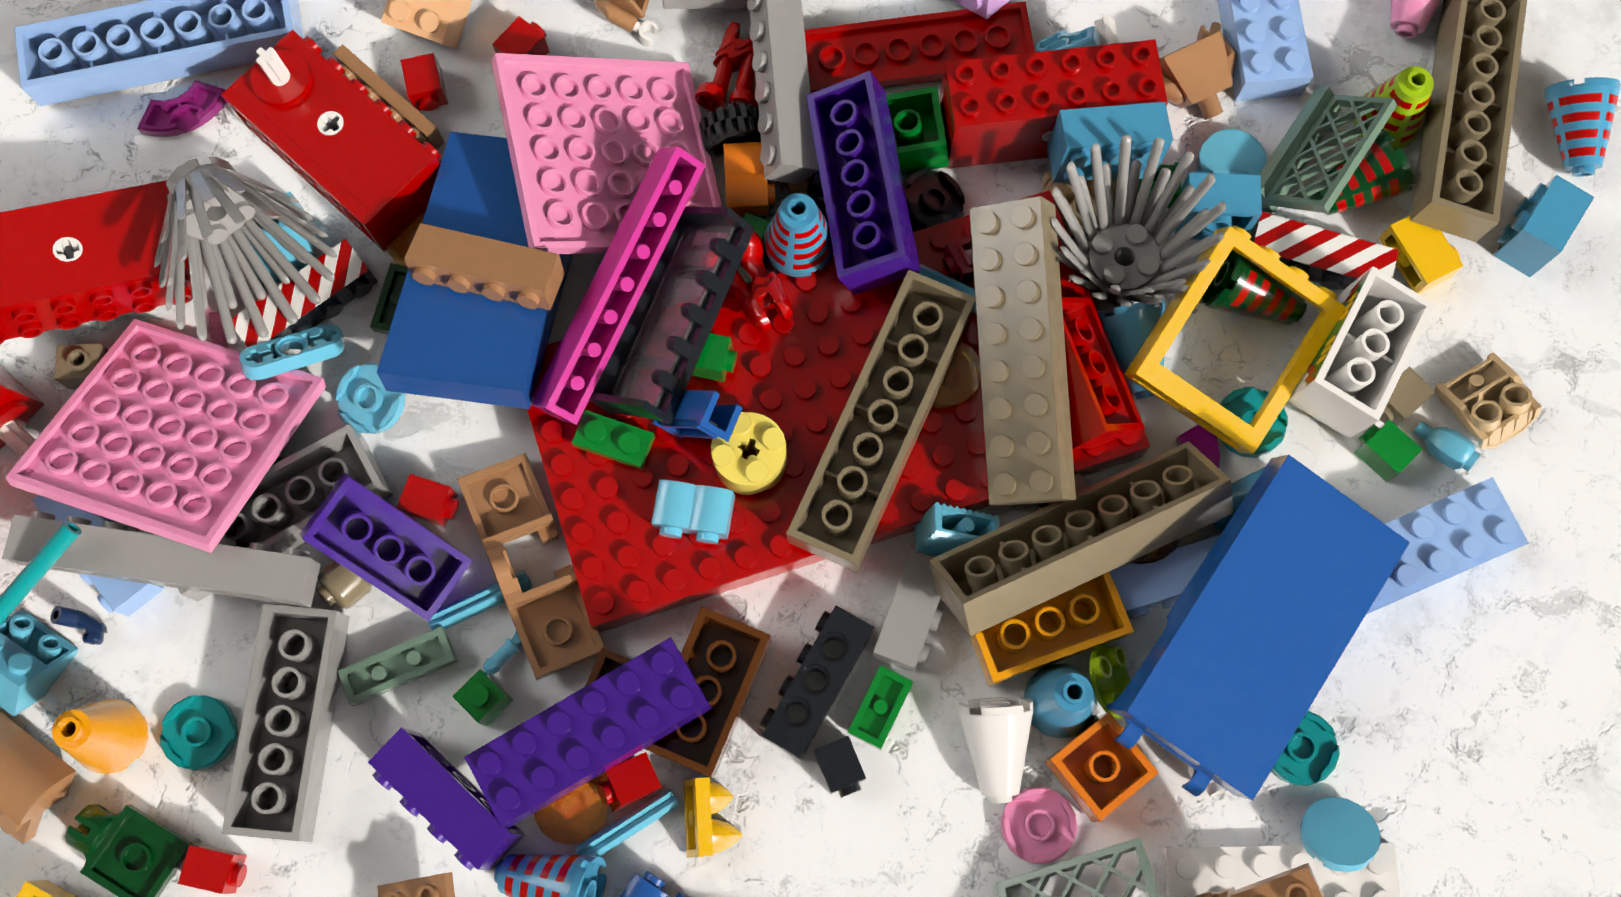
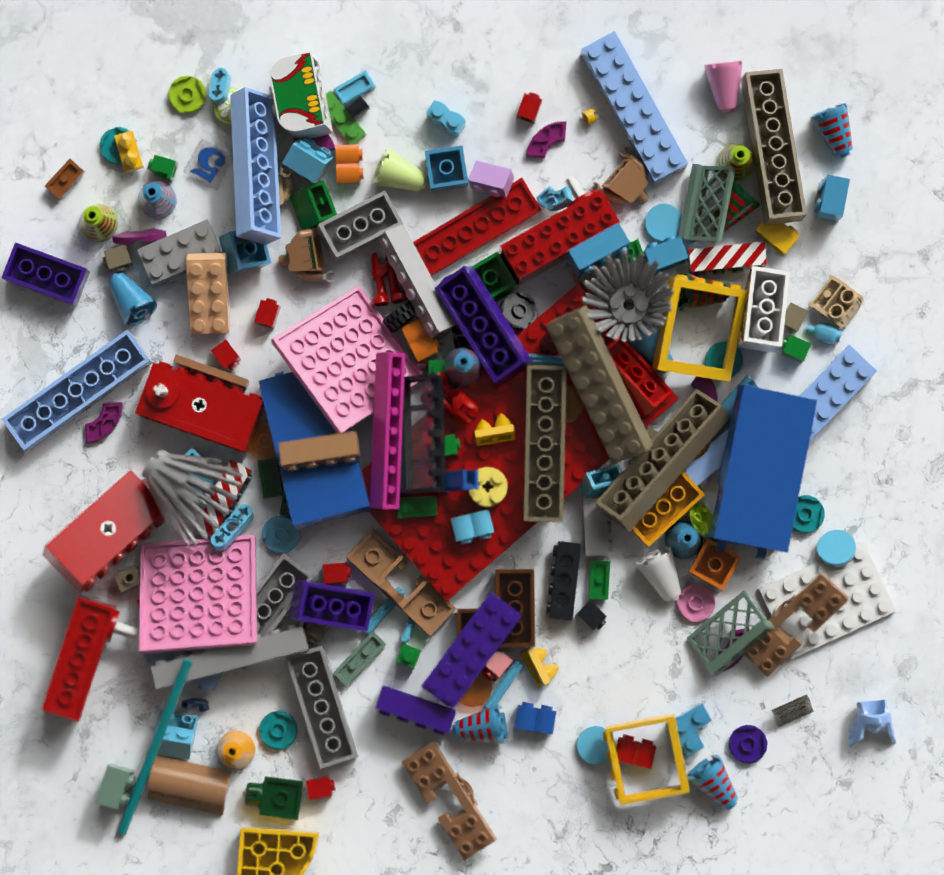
camera: 25 degrees left, 10 degrees up
(810, 373) = (501, 432): none -> yellow tile

